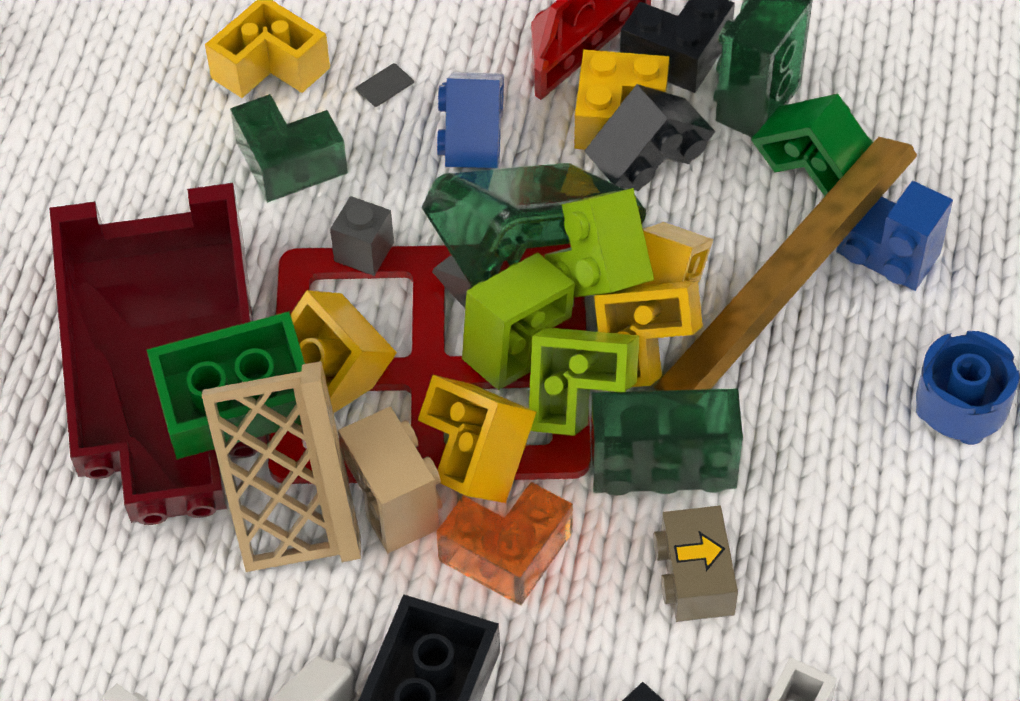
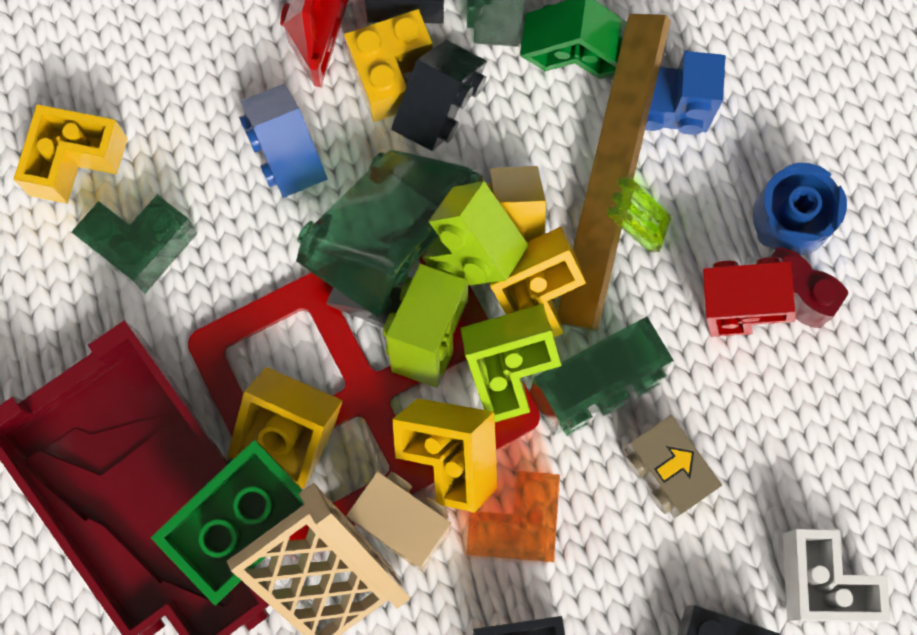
camera: 30 degrees left, 20 degrees up
(362, 235) = (251, 300): dark grey brick -> none
(385, 85) = (182, 132): dark grey sticker -> none
(786, 324) = (637, 222): none -> clear neon green tile
(854, 425) = (748, 295): none -> red brick
(929, 459) = (815, 292): none -> dark red brick

